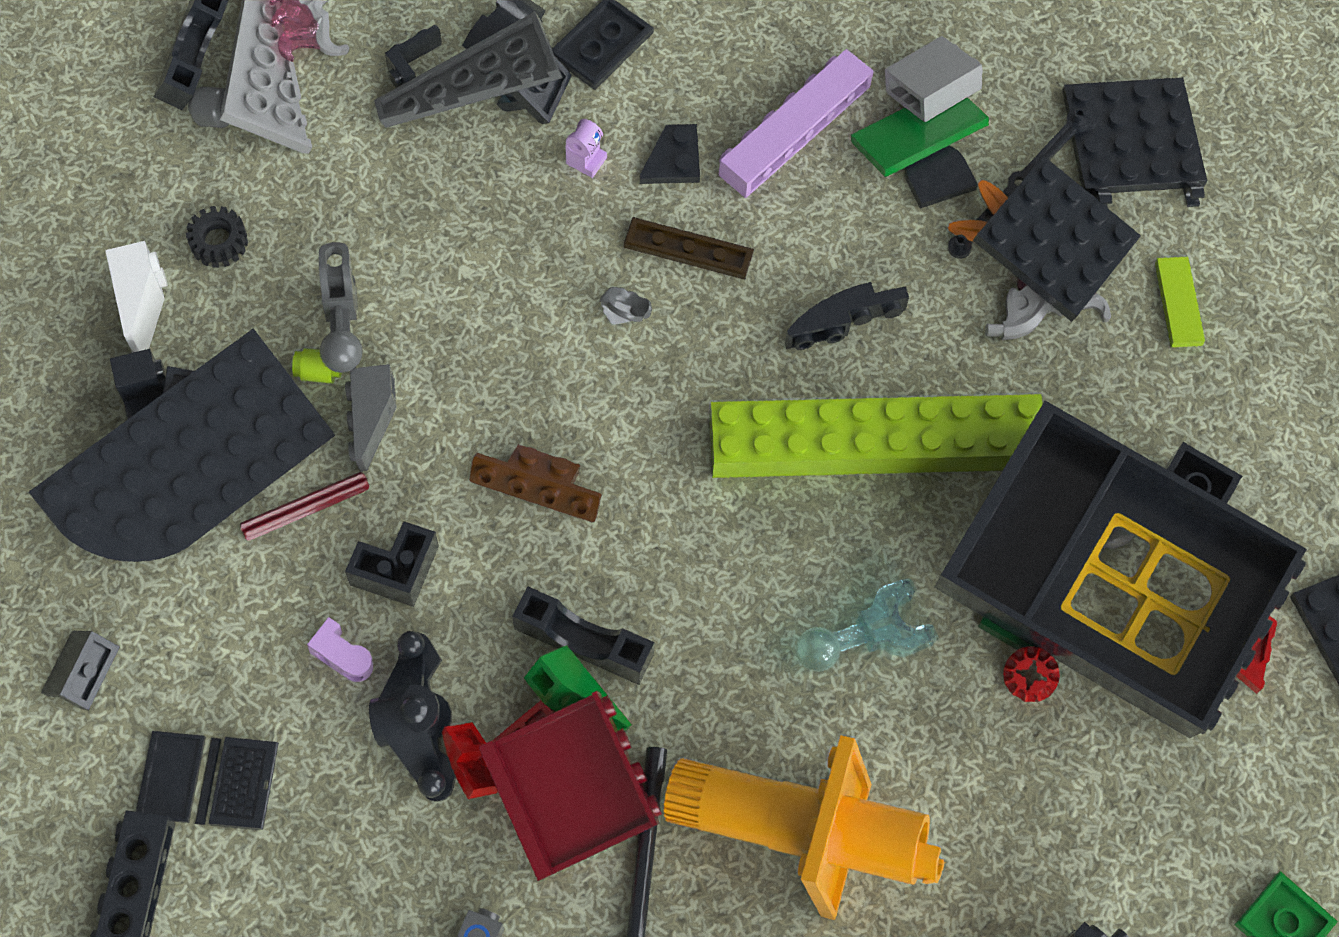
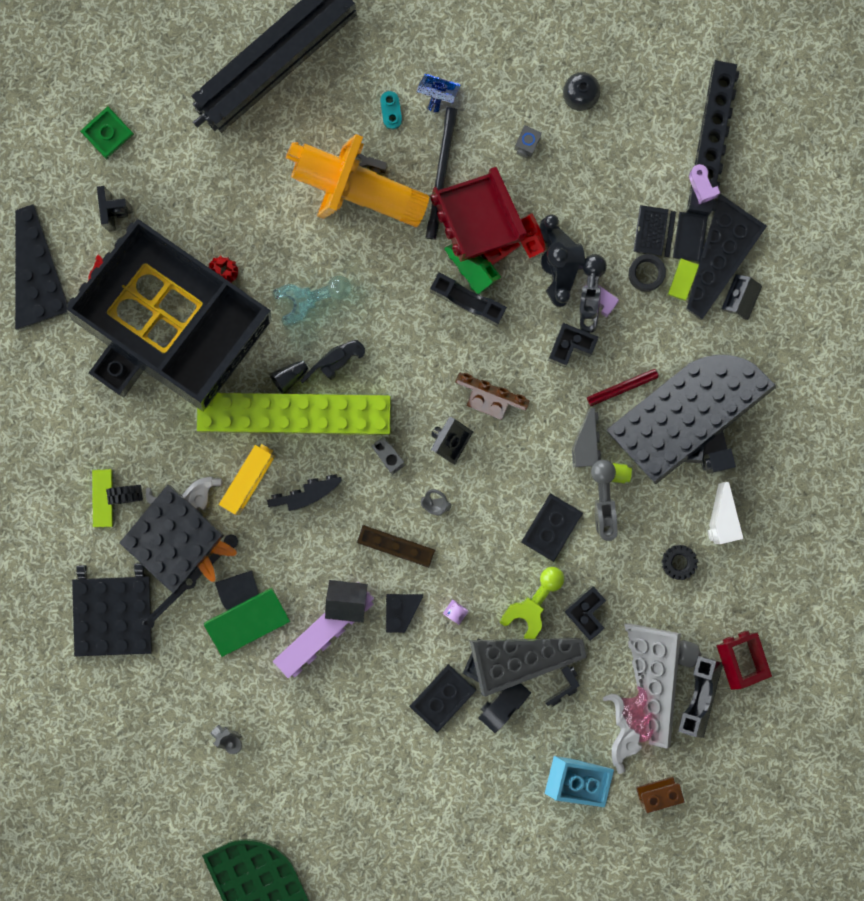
camera: 170 degrees left, 20 degrees up
(101, 759) = (725, 248): none -> black wing
(108, 73) = (730, 663): none -> dark red window
(144, 866) = (702, 185): none -> lavender leg
(187, 696) = (683, 279): none -> lime tile
(237, 682) = (661, 272): none -> black tyre
(351, 699) = (594, 268): none -> black piece
(377, 156) = (581, 612): none -> black brick
(430, 284) = (551, 527): none -> black tile
(463, 161) = (530, 609): none -> lime piece
(605, 401) = (451, 440): none -> black tile
(710, 376) = (388, 455): none -> dark grey leg
(764, 154) = (346, 601): none -> black slope
(768, 877) = (373, 164): none -> dark grey plate
(812, 529) = (336, 359): none -> black animal
(894, 498) = (288, 376): none -> black piece
(933, 78) = (233, 656): light grey brick -> none
(945, 325) = (247, 479): none -> yellow window
(1145, 297) = (124, 494): none -> black tyre
(1256, 764) = (109, 208): none -> black bracket

